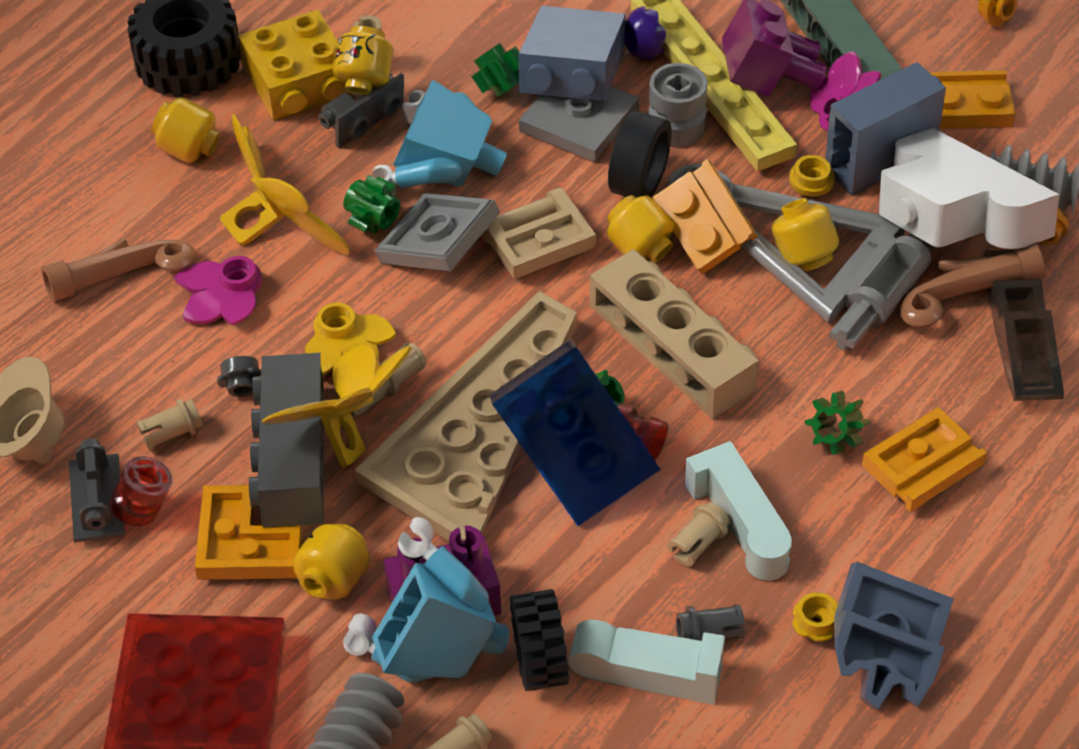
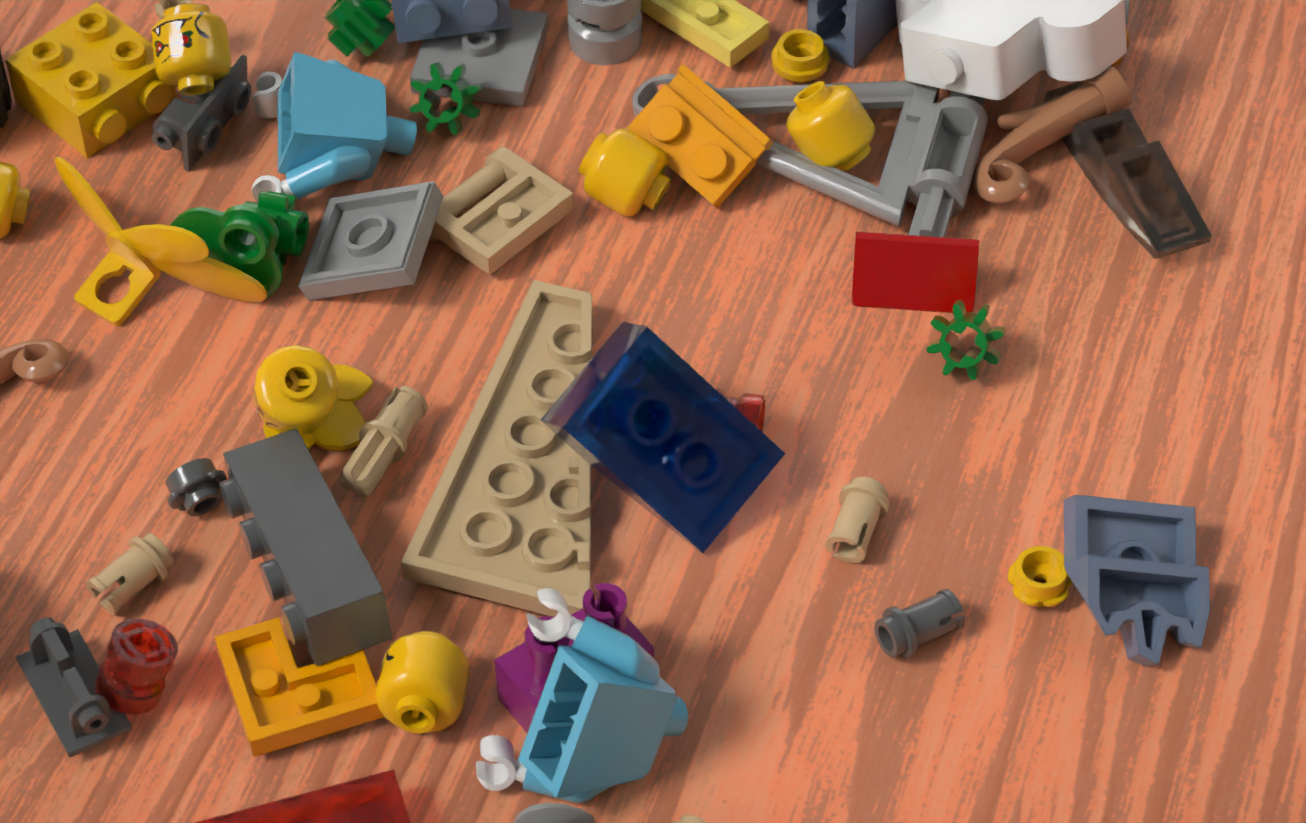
camera: 20 degrees left, 0 degrees up
(220, 290) = (119, 388): dark pink plate -> none
(332, 310) = (285, 407): none -> yellow head
(338, 205) = (239, 238): none -> green plate
(355, 379) = (368, 457): yellow piece -> none
(524, 142) = (430, 102): none -> green gear
(539, 639) = (731, 700): black tyre -> none
(639, 155) = (589, 82): black tyre -> none
(649, 660) = (867, 687): light aqua leg -> none
(674, 333) = (720, 287): tan brick -> none
(752, 517) = (917, 483): light aqua leg -> none
(824, 361) = (914, 272): none -> red slope
(924, 459) = (1082, 355): light orange plate -> none

